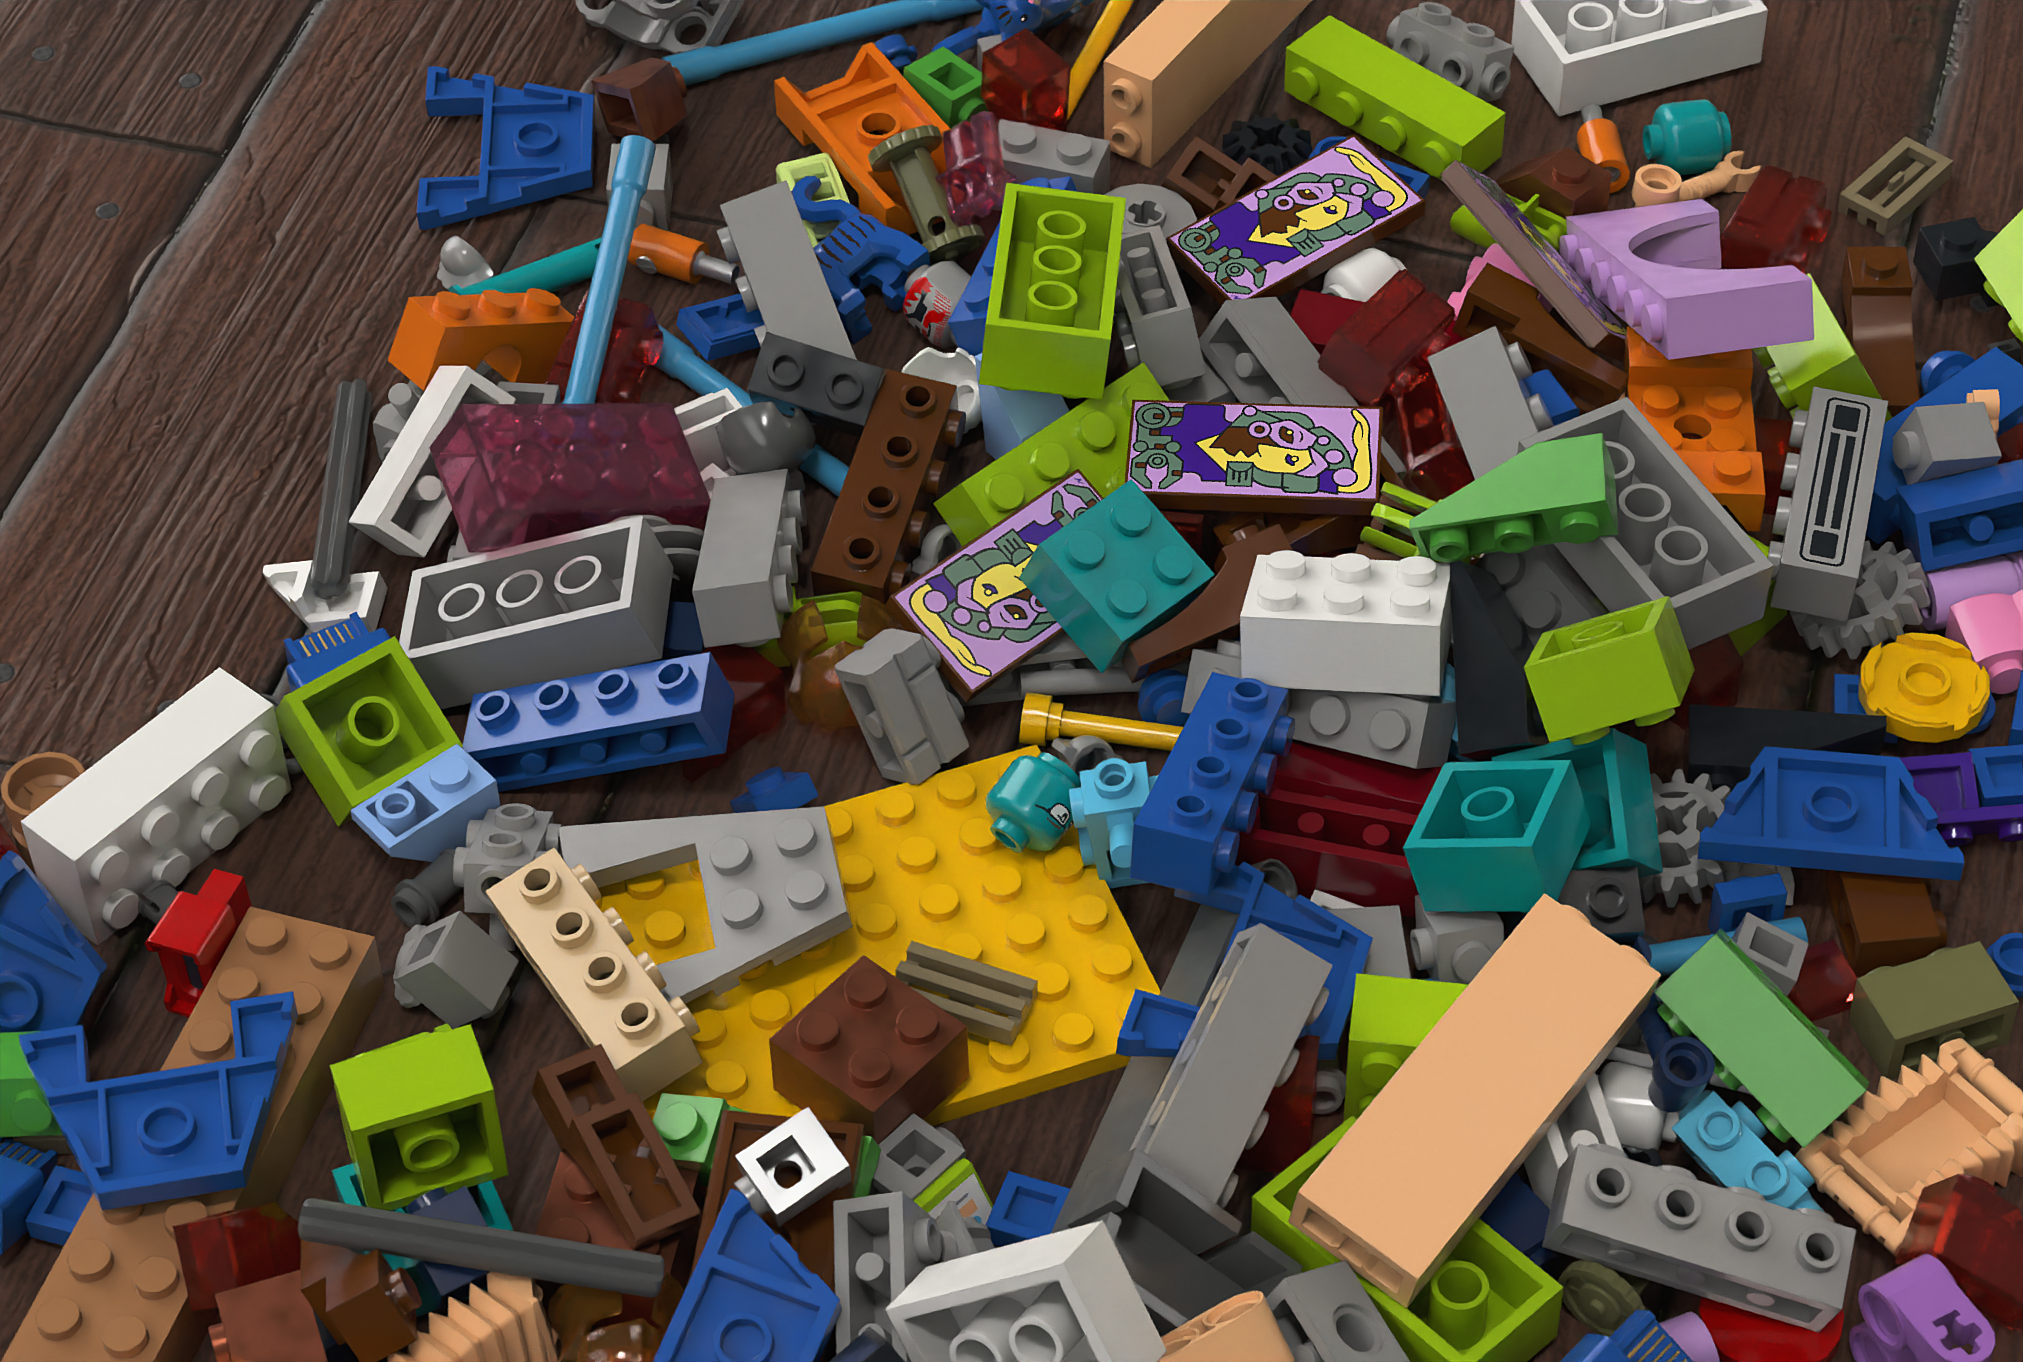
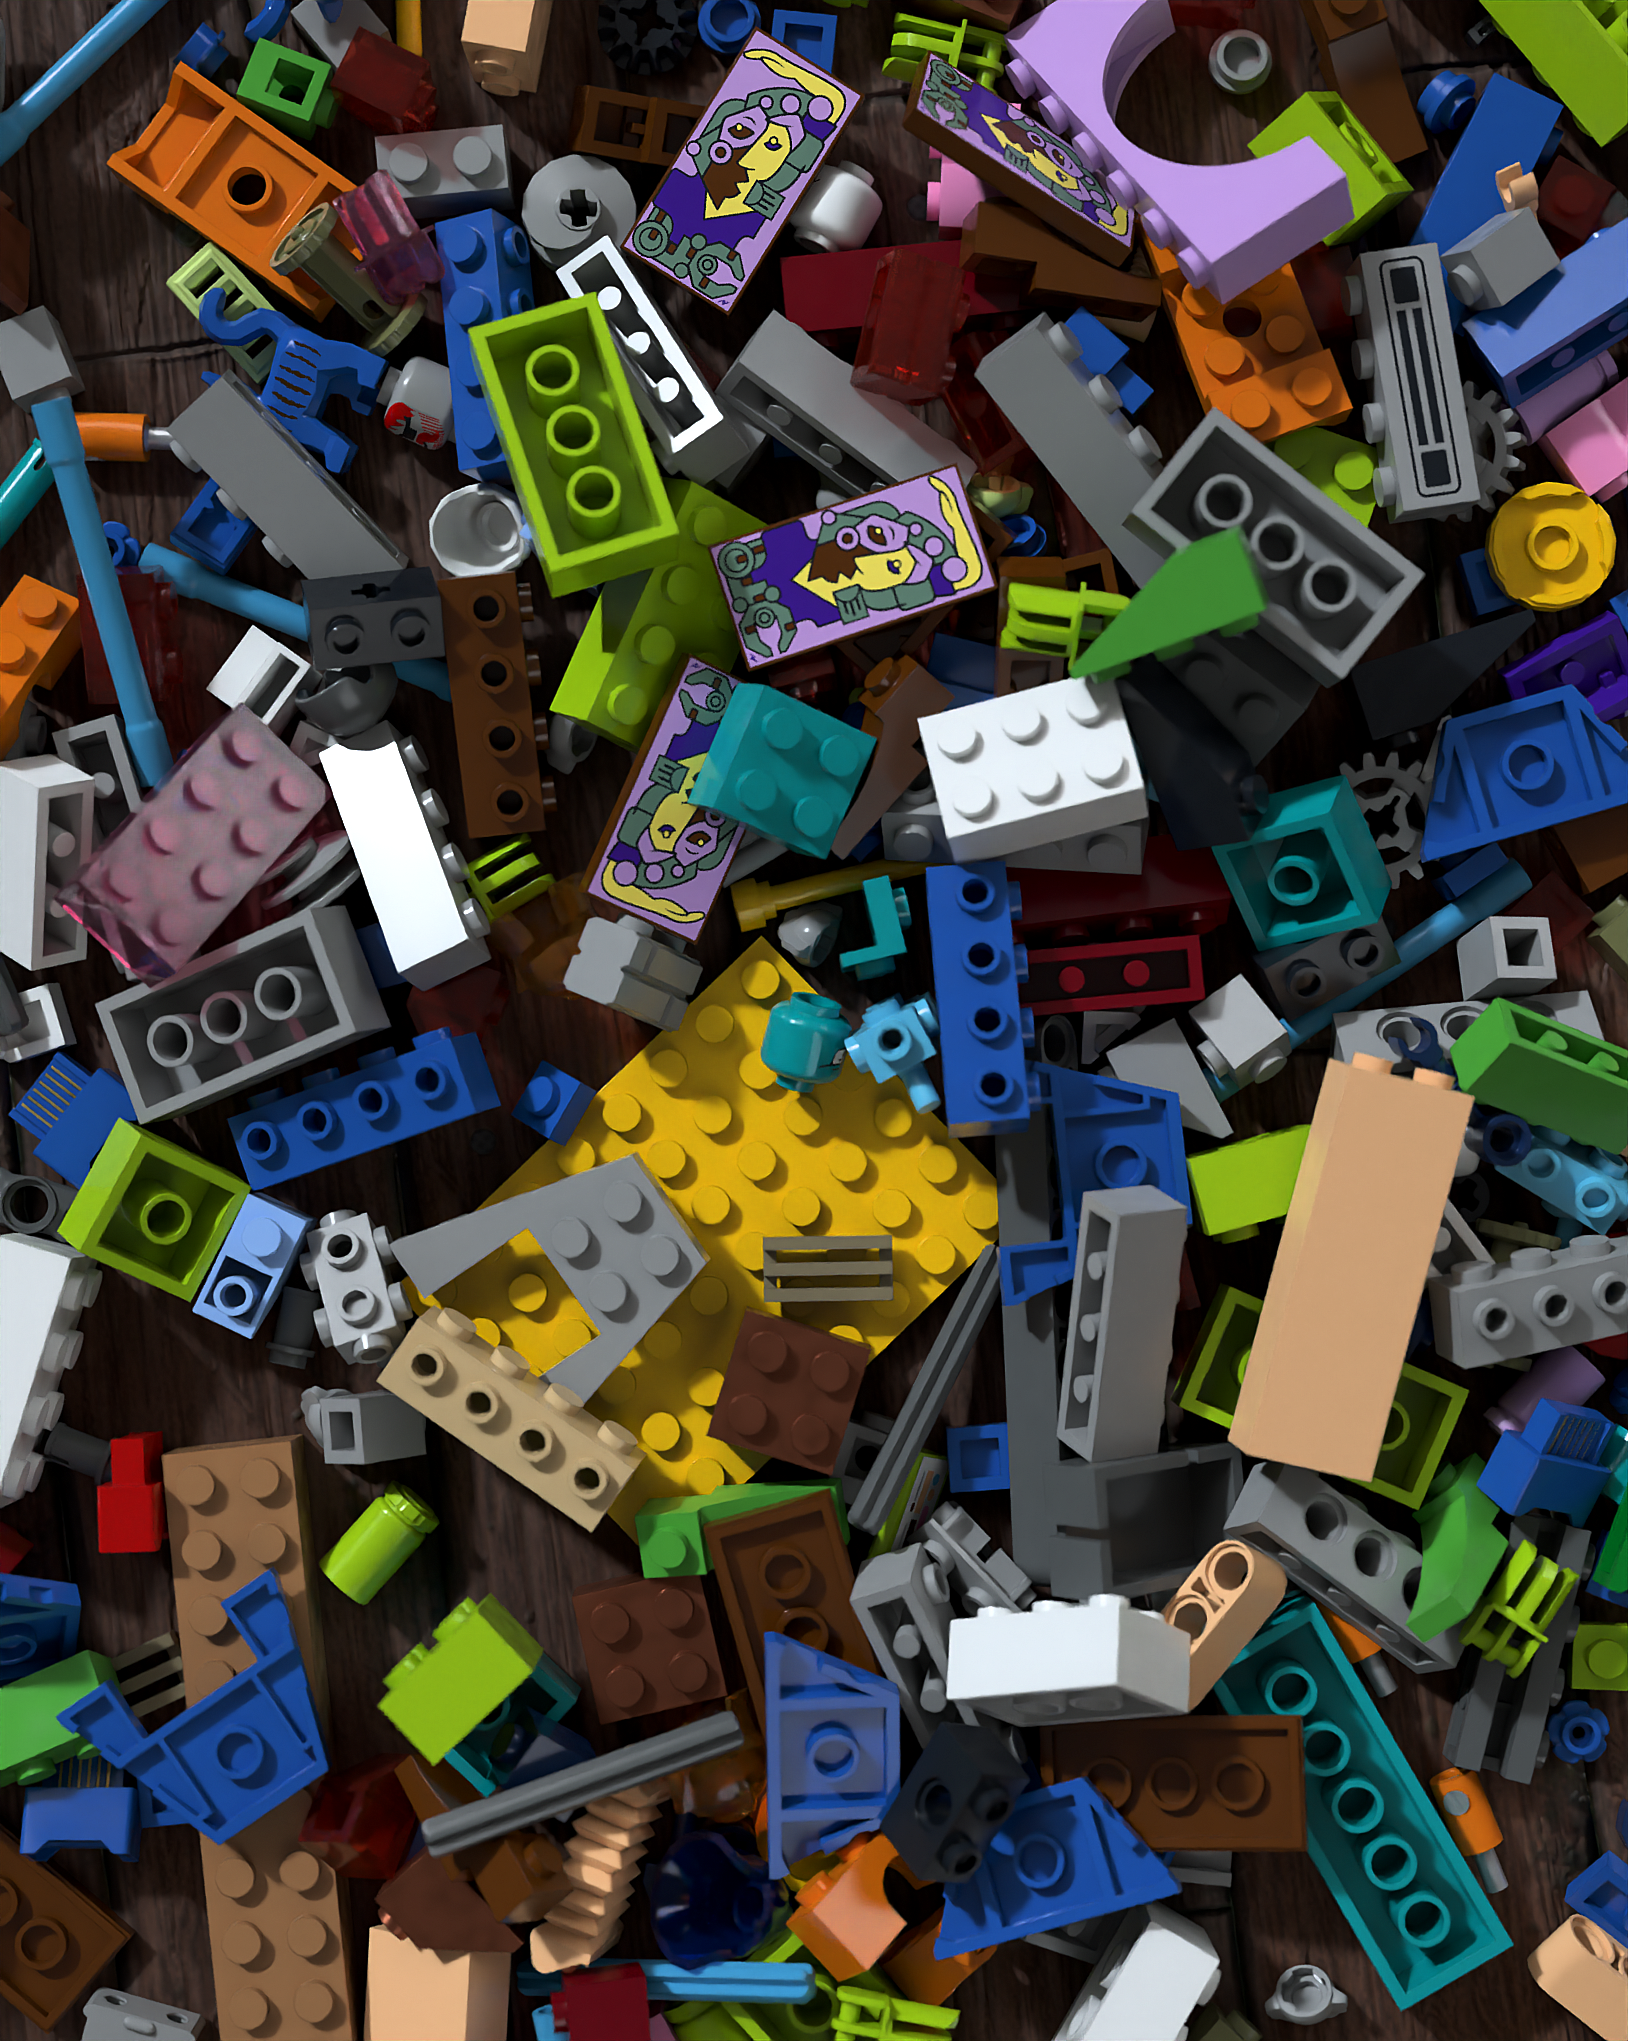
camera: 25 degrees left, 40 degrees up
(615, 1146) = (626, 1599): reddish brown slope -> none
(797, 1144) = (810, 1607): brick -> none
(997, 1120) = (927, 1395): none -> dark grey axle
(1150, 736) = (887, 918): none -> teal bracket
(1497, 835) = (1262, 964): teal brick -> none
(1610, 672) = (1315, 767): lime brick -> none

